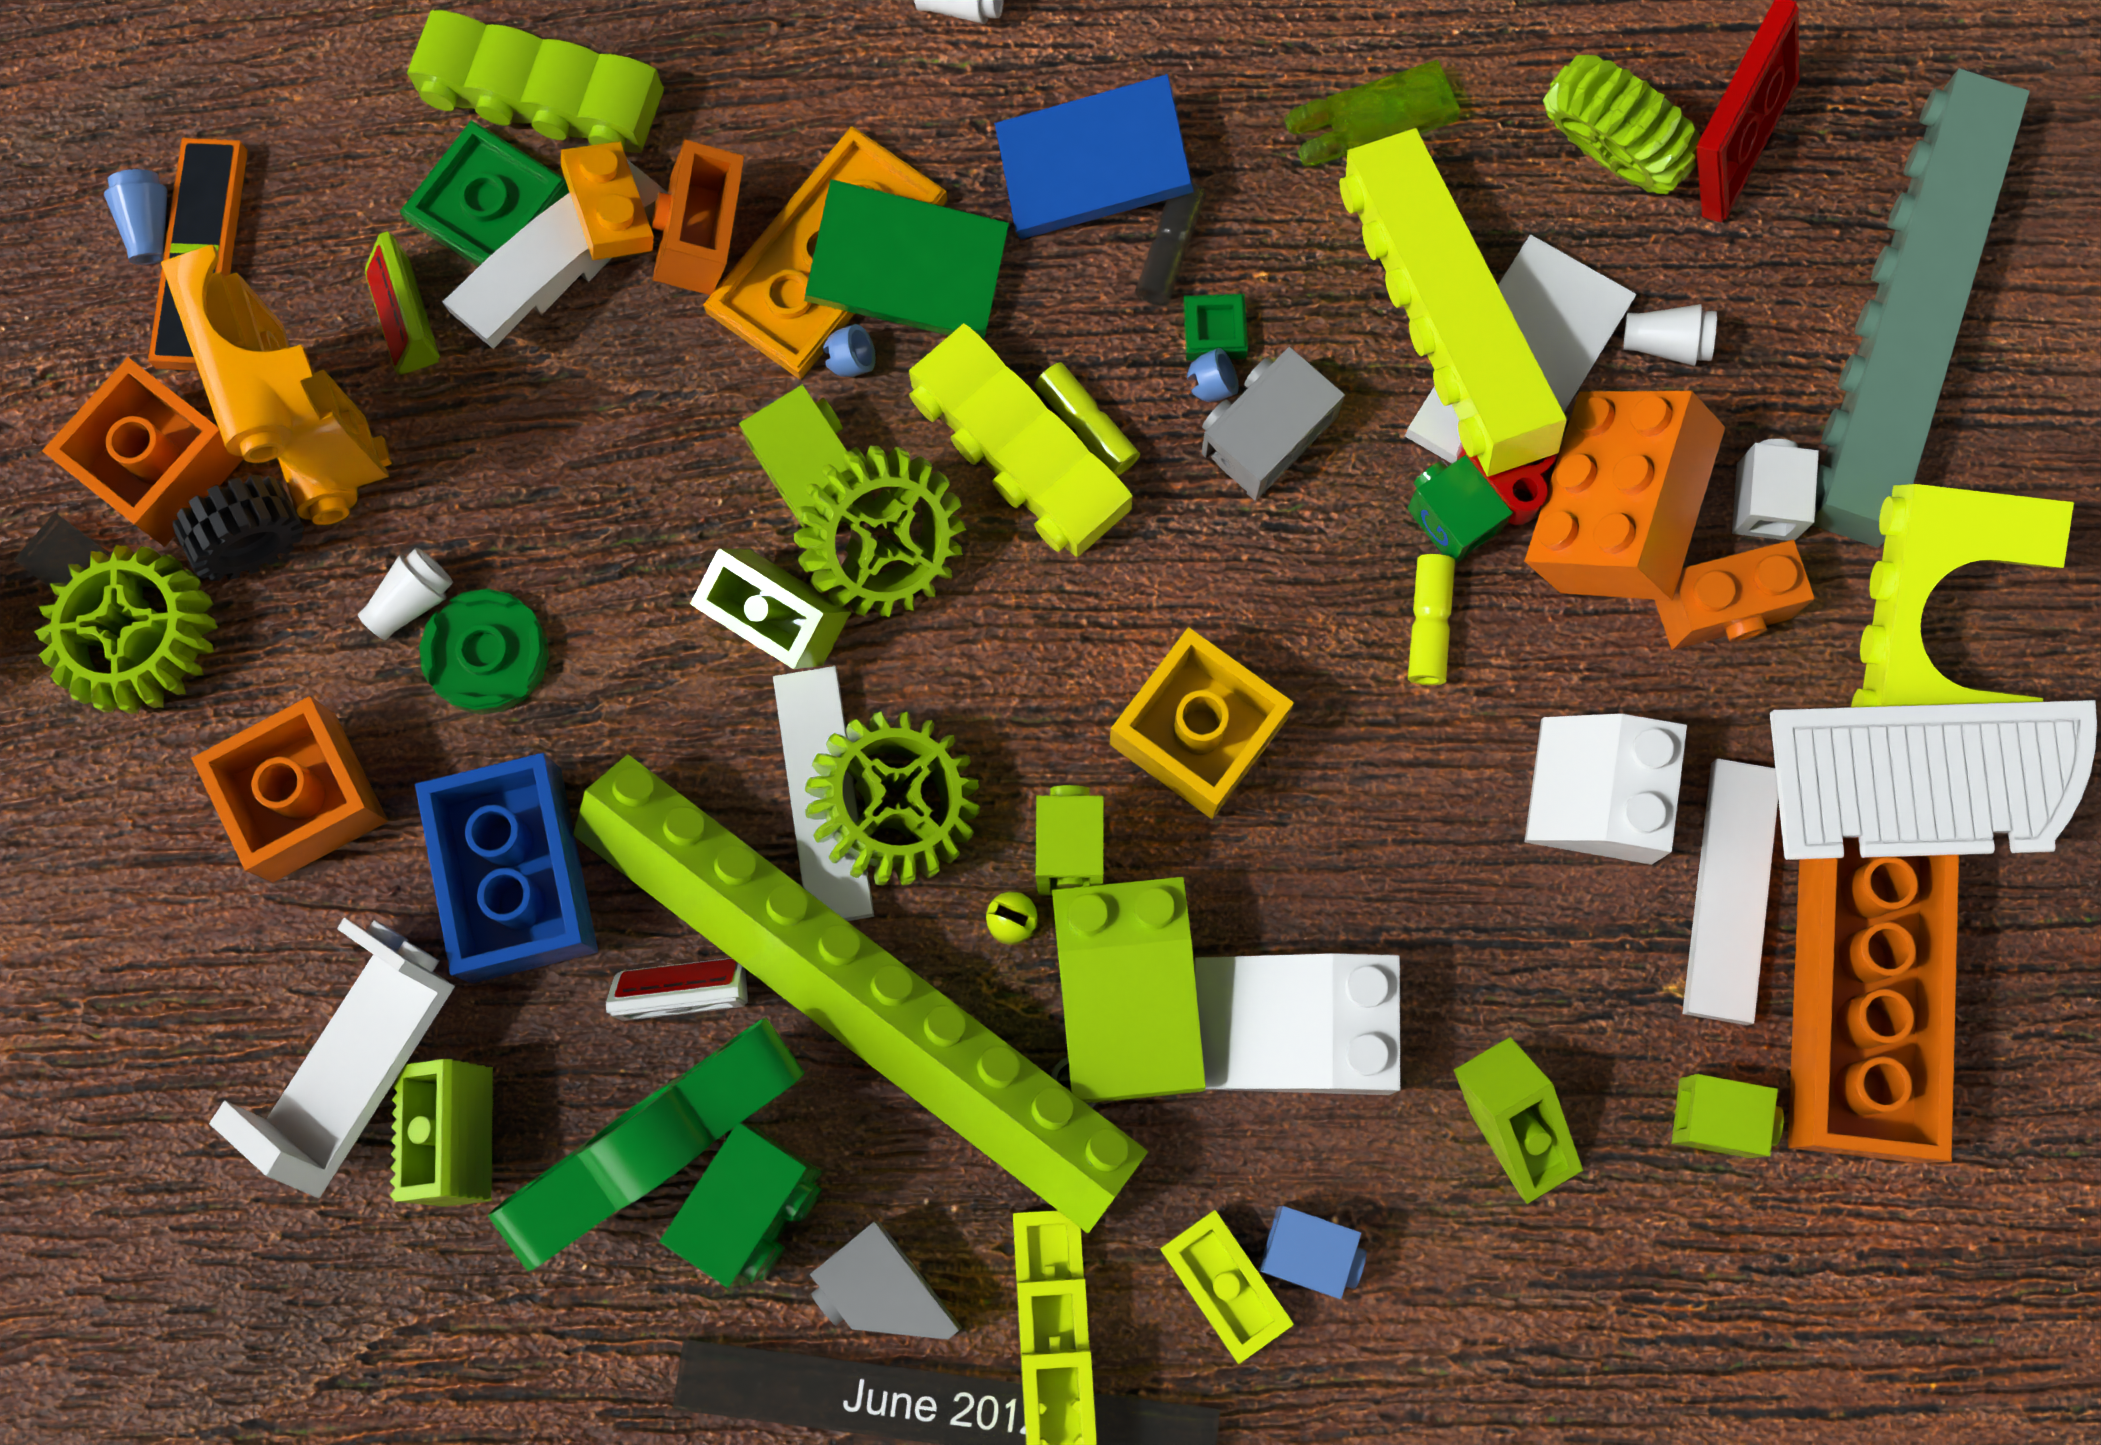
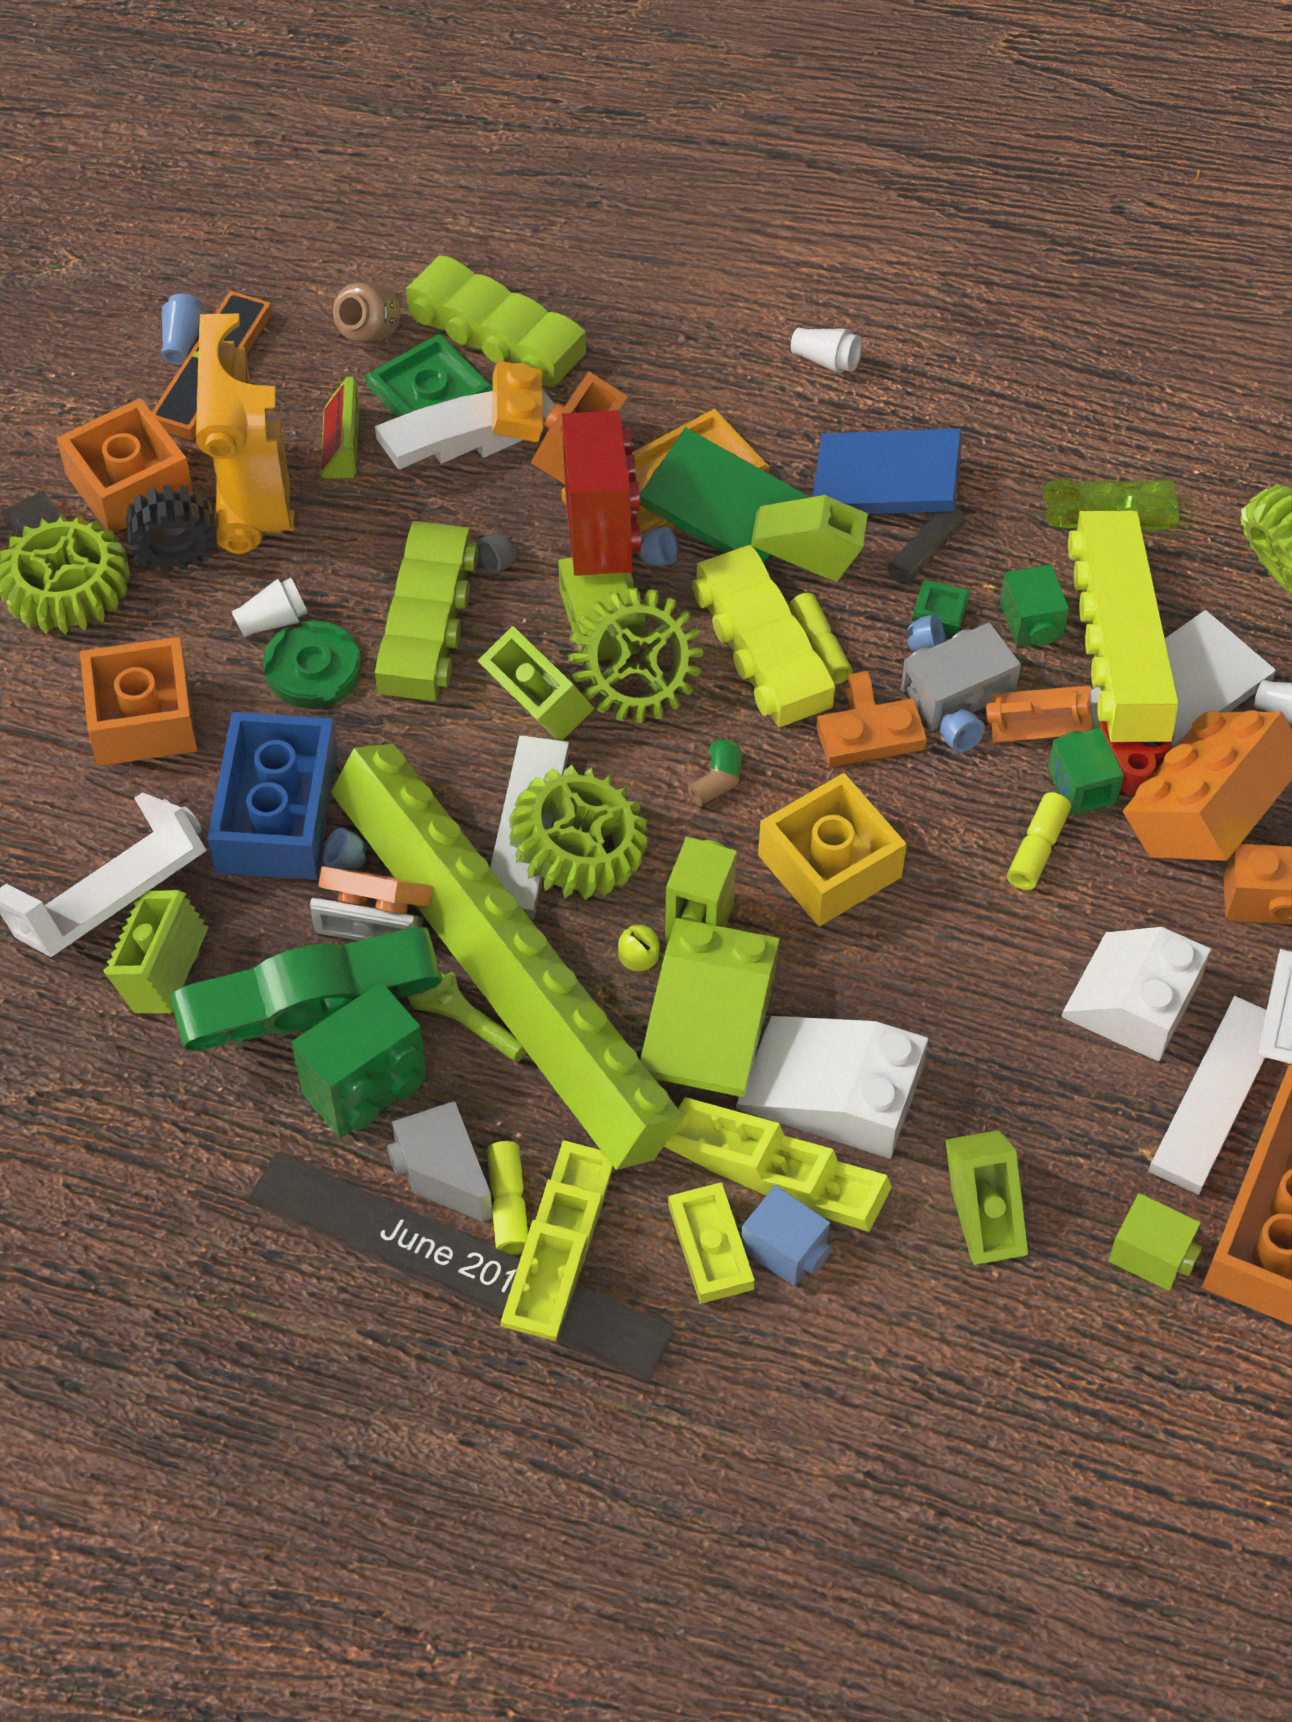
camera: 15 degrees right, 20 degrees down
(368, 122) = (366, 312): none -> medium nougat head
(596, 537) = (425, 611): none -> lime brick
(617, 907) = (344, 850): none -> medium blue hinge
(655, 421) = (497, 552): none -> dark grey hinge
(676, 959) = (359, 887): none -> orange plate
(760, 323) = (600, 492): none -> red brick
(824, 1068) = (449, 1001): none -> lime piece
(976, 1312) = (507, 1191): none -> neon yellow piece
(1033, 643) = (723, 774): none -> arm
(1034, 284) = (811, 534): none -> lime slope
(1186, 526) = (869, 729): none -> orange plate
(1269, 1156) = (761, 1156): none -> neon yellow slope
(1295, 496) = (961, 730): none -> medium blue hinge
(1329, 296) = (1034, 606): none -> green brick
(1383, 446) = (1039, 713): none -> orange hinge

